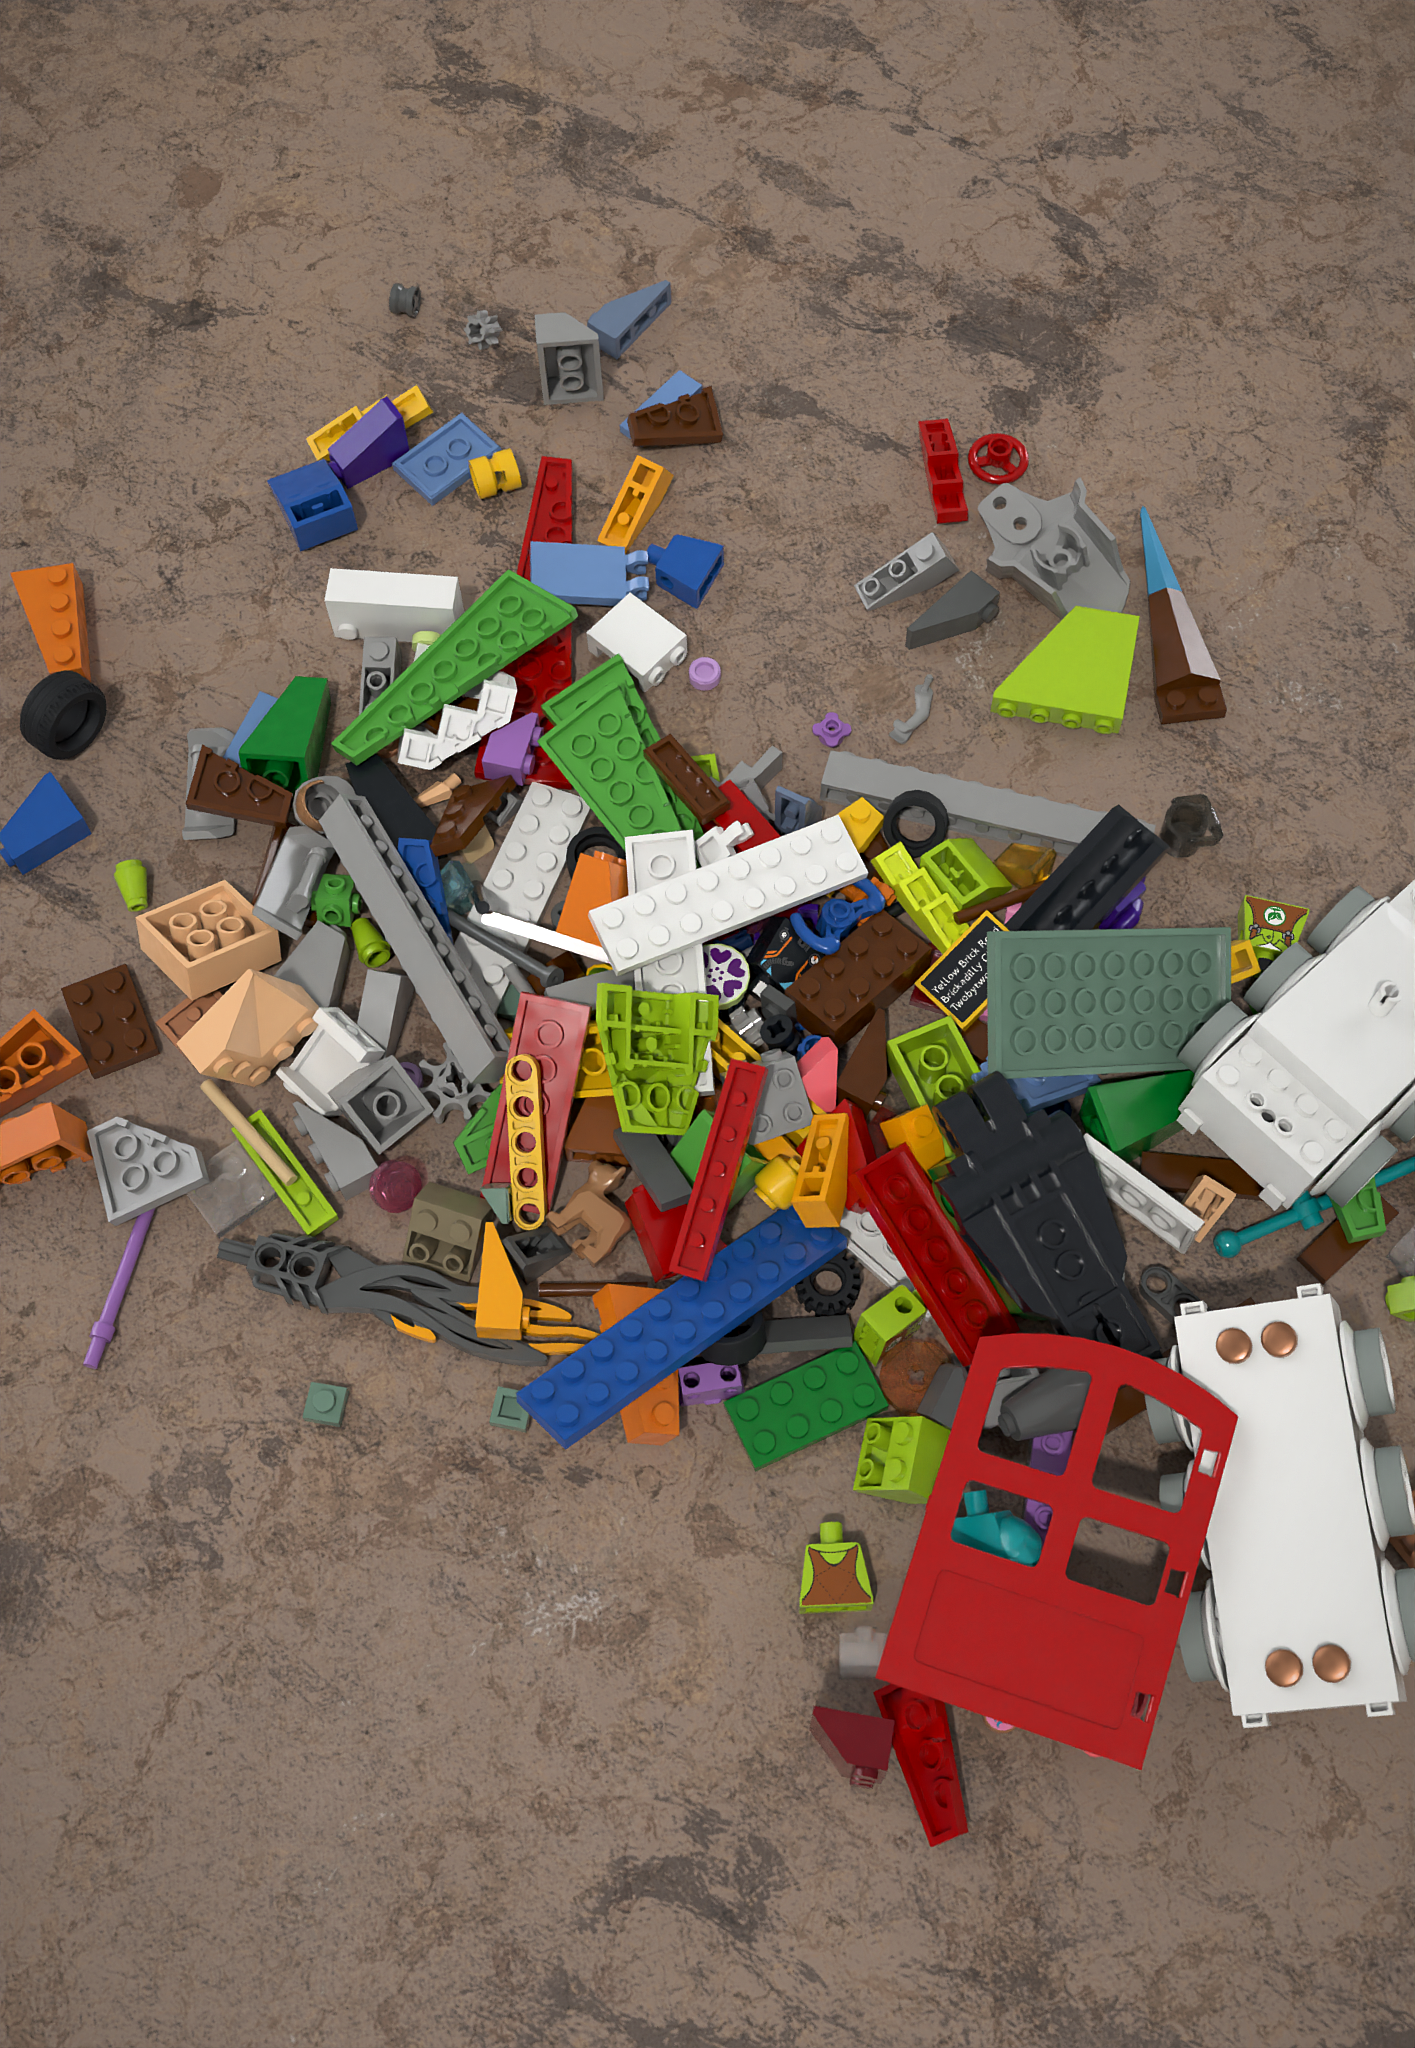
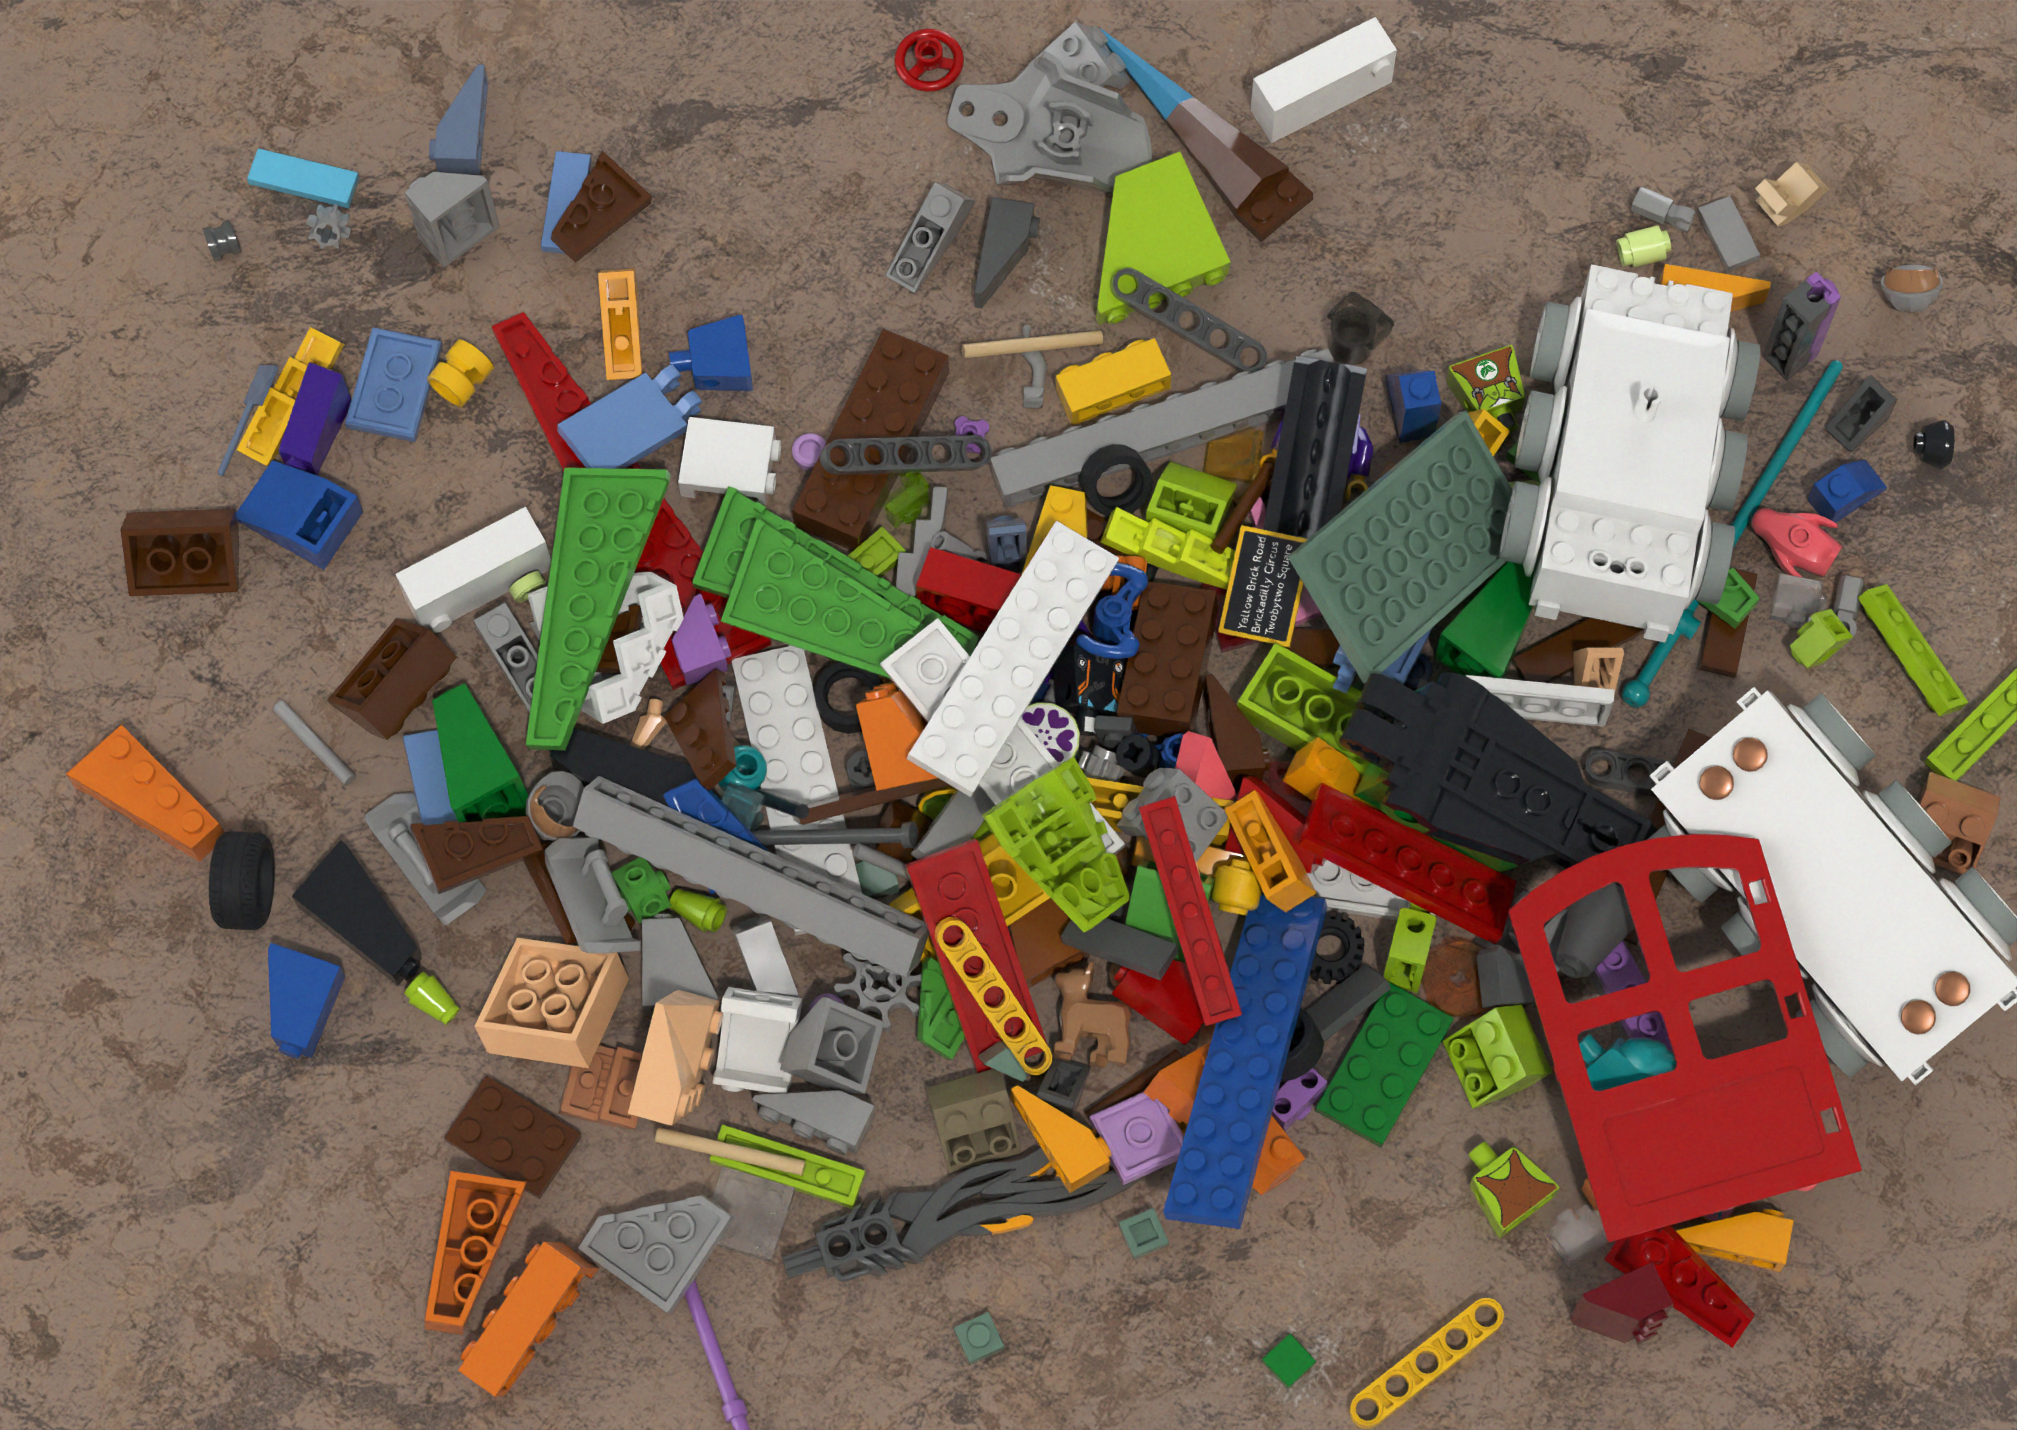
camera: 35 degrees left, 5 degrees up
(130, 792) = (354, 912): none -> black slope
(199, 661) = (314, 743): none -> light grey bar
(213, 480) = (181, 552): none -> reddish brown slope
(285, 650) = (393, 678): none -> reddish brown slope
(317, 426) = (255, 397): none -> sand blue piece
(395, 1186) = (897, 1112): clear pink plate -> none
(478, 860) = (749, 768): none -> teal head
(493, 293) = (303, 178): none -> medium azure tile
(551, 1593) = (1288, 1361): none -> green tile
(560, 1325) = (1138, 1136): none -> lavender tile
(642, 1670) = (1415, 1378): none -> yellow beam
(686, 779) = (895, 573): reddish brown plate -> none
(719, 844) = (966, 619): white plate -> none
(749, 707) = (890, 460): none -> dark grey beam
(750, 747) = (908, 504): none -> clear neon green bracket
(754, 687) = (886, 402): none -> reddish brown brick
(926, 692) = (1032, 344): none -> tan bar
(942, 471) = (887, 105): red slope -> none
(969, 754) = (1113, 381): none -> yellow brick
(1007, 1759) = (1747, 1239): none -> light orange slope
(1056, 726) = (1170, 319): none -> dark grey beam
(1121, 515) = (1087, 56): none -> light grey bracket
(1197, 901) = (1414, 403): none -> blue slope
(1292, 630) = (1323, 80): none -> white brick

